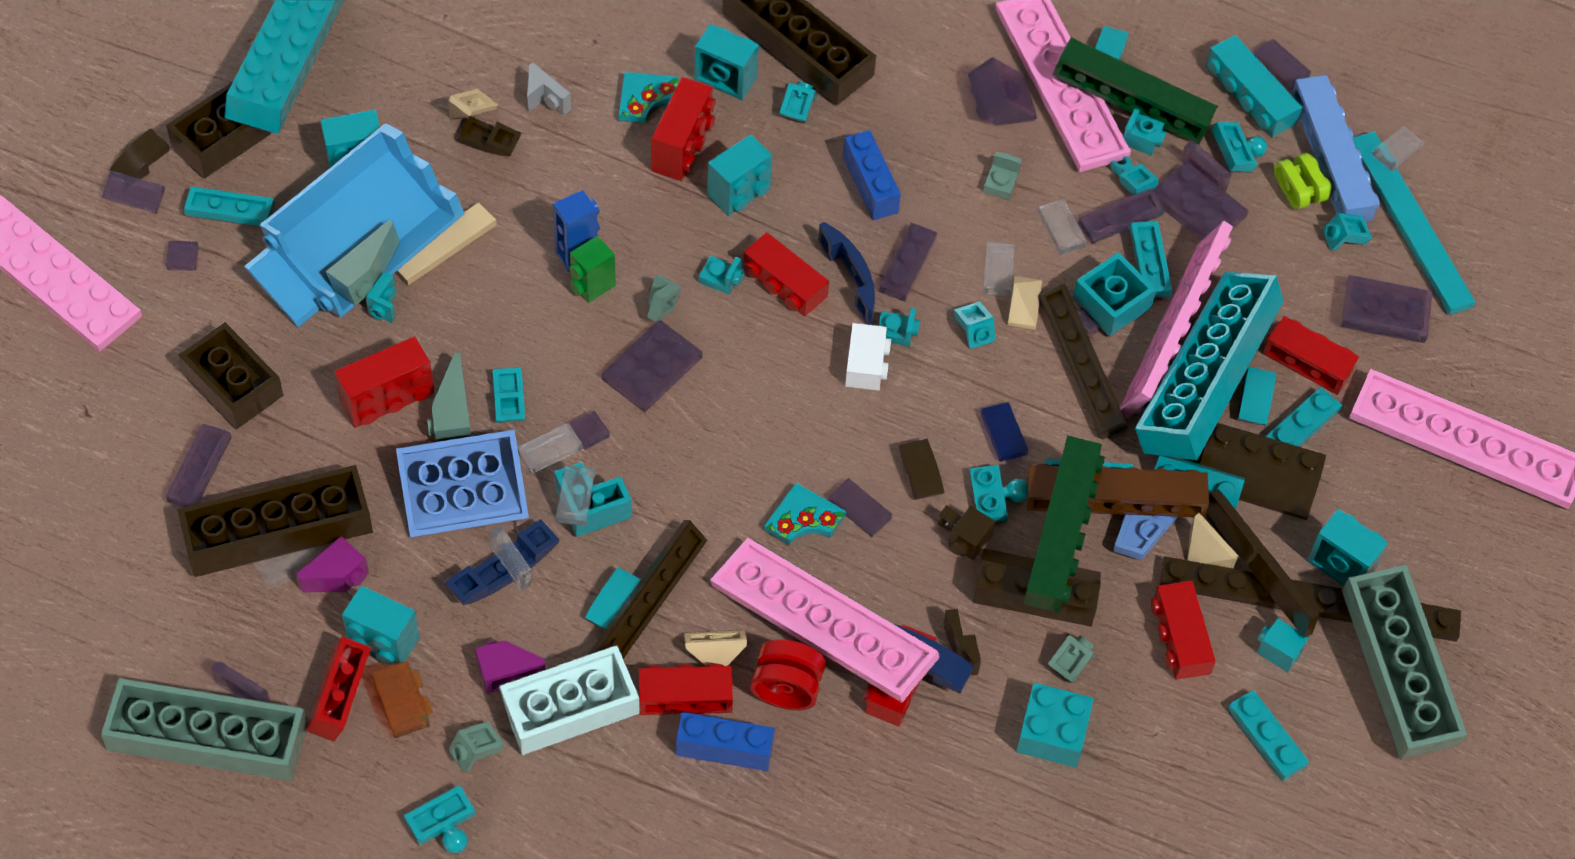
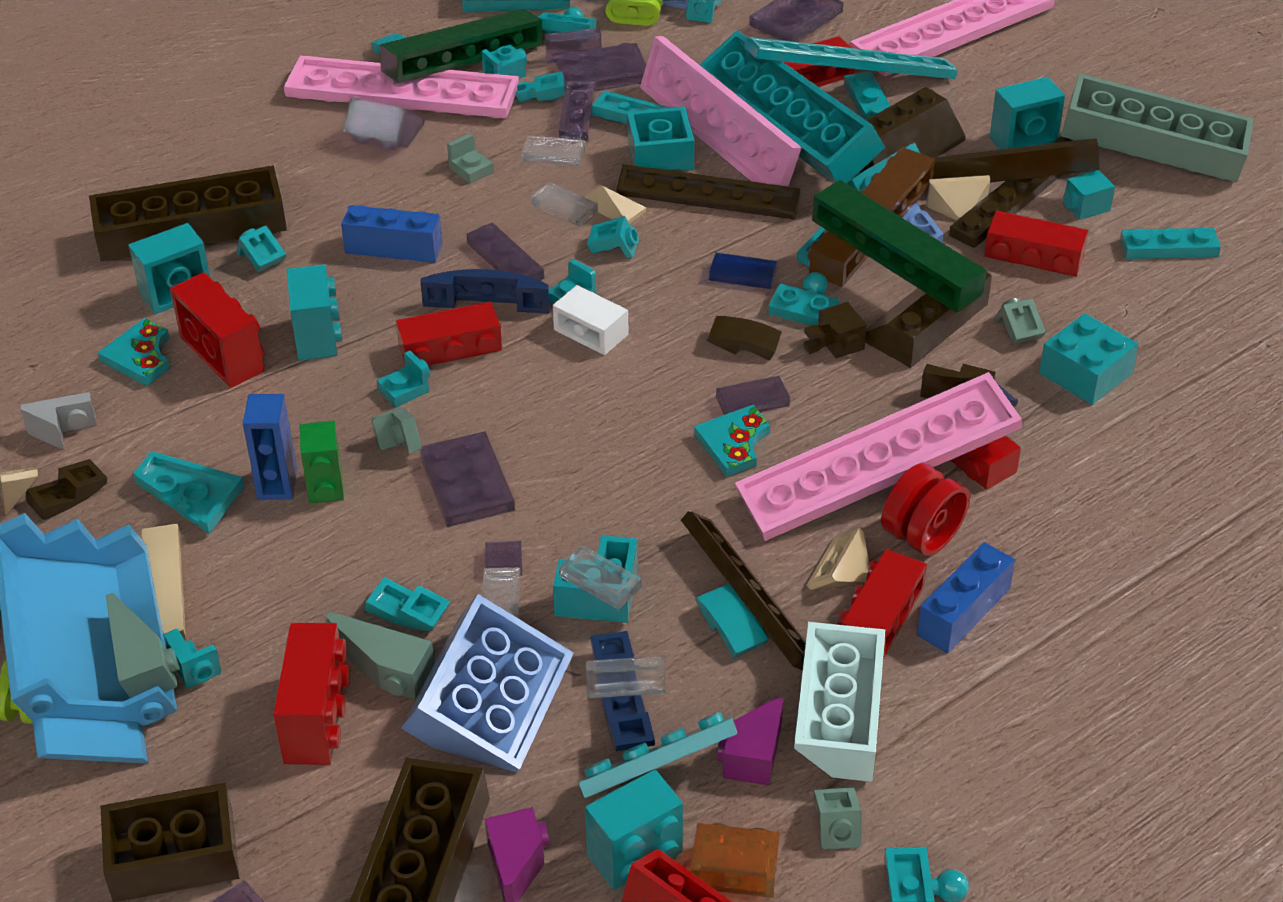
camera: 55 degrees left, 15 degrees down
(441, 609) = (641, 759): none -> teal plate
(531, 206) = (189, 488): none -> teal wing
(1317, 381) = (850, 58): none -> teal tile

